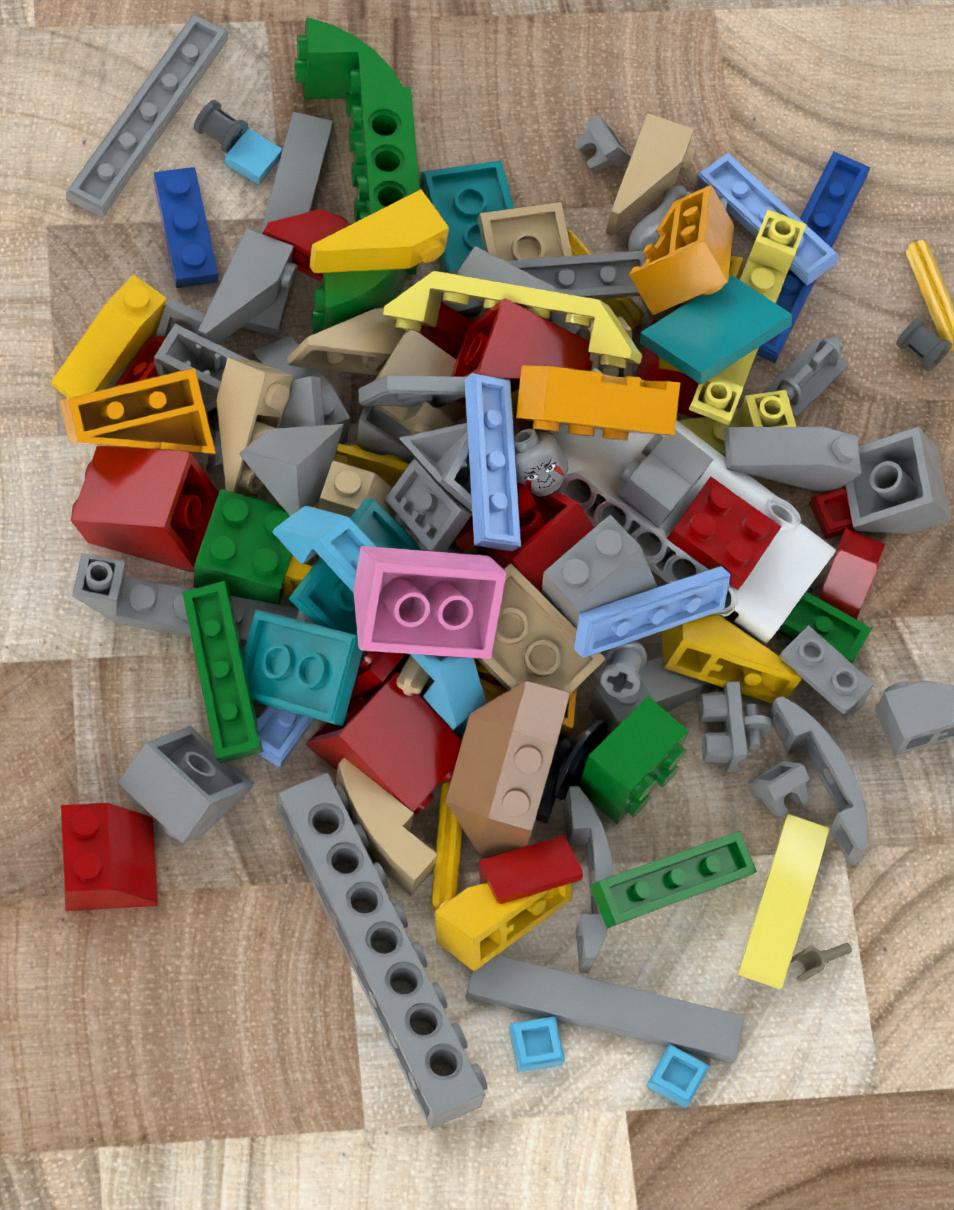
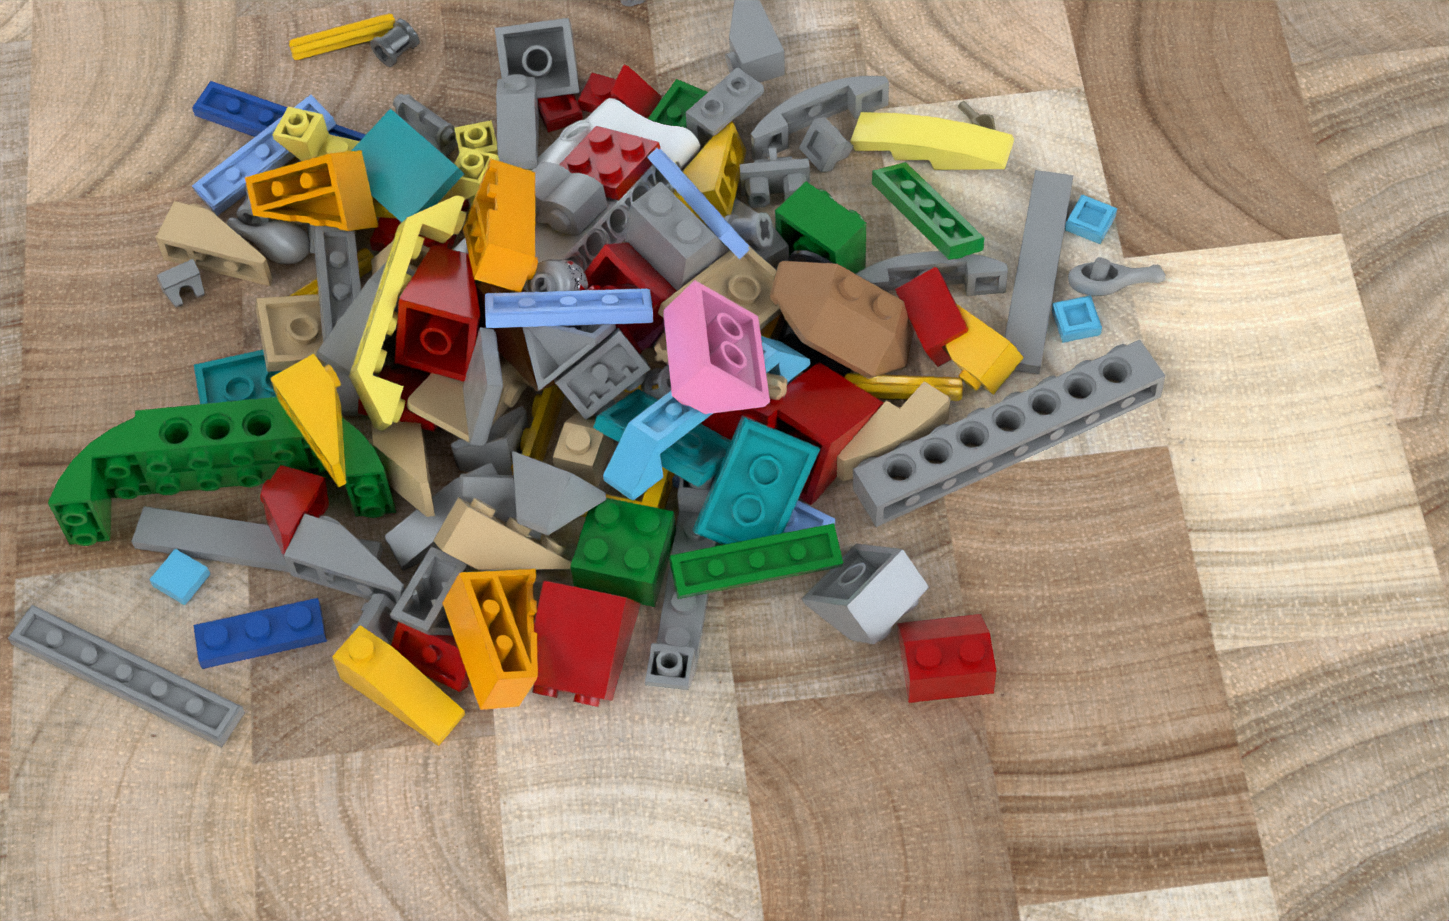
camera: 75 degrees left, 5 degrees down
(219, 125) = (147, 603): dark grey bush -> none
(589, 1079) = (1105, 278): none -> light grey piece

